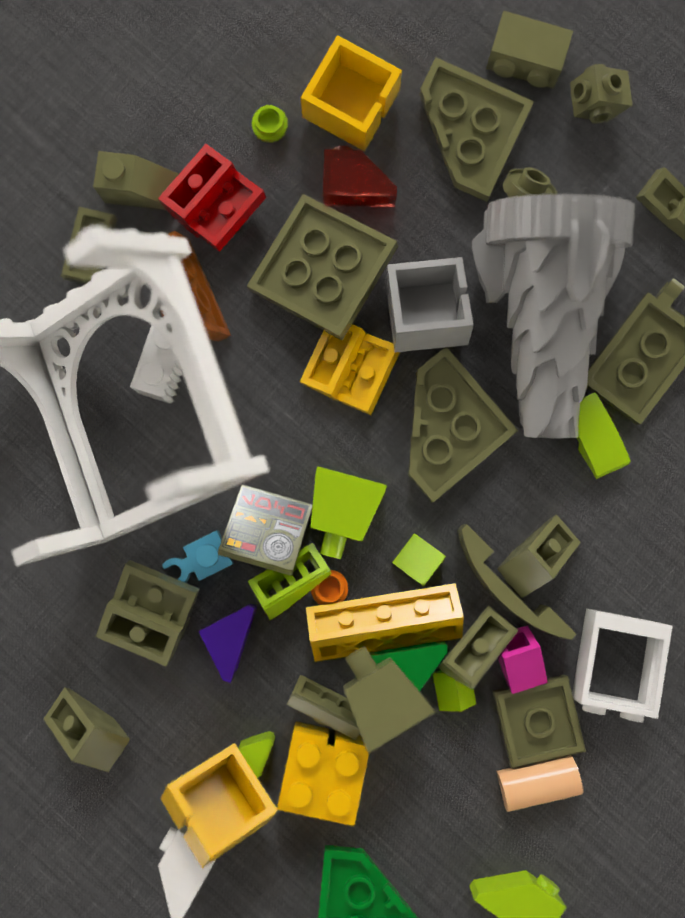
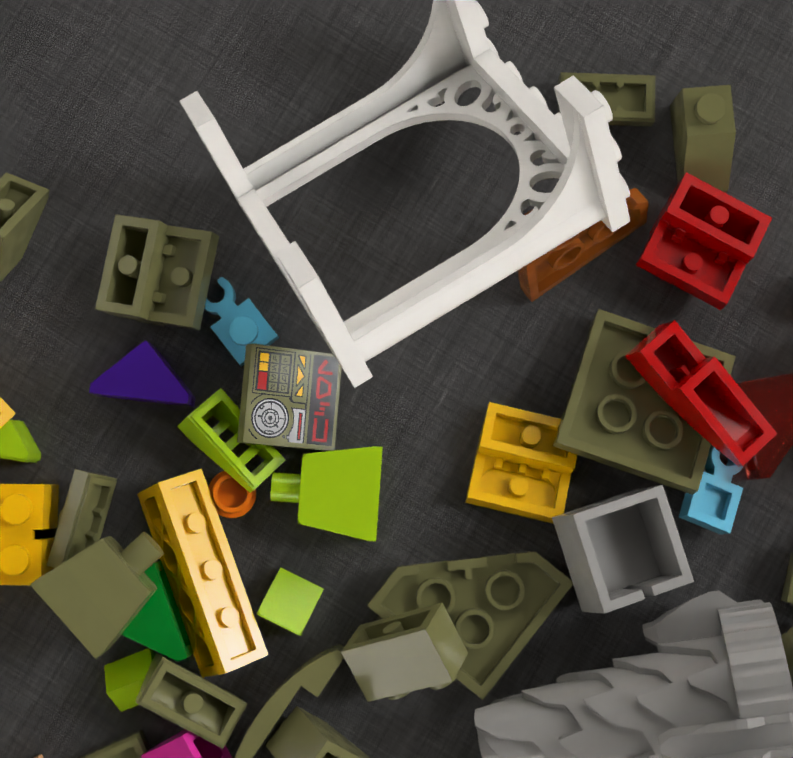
camera: 75 degrees right, 0 degrees up
(157, 369) = (464, 217): white brick -> none
(324, 222) = (701, 393): none -> red slope
(404, 228) = (717, 497): none -> medium azure plate
(474, 479) = (405, 653): none -> olive brick

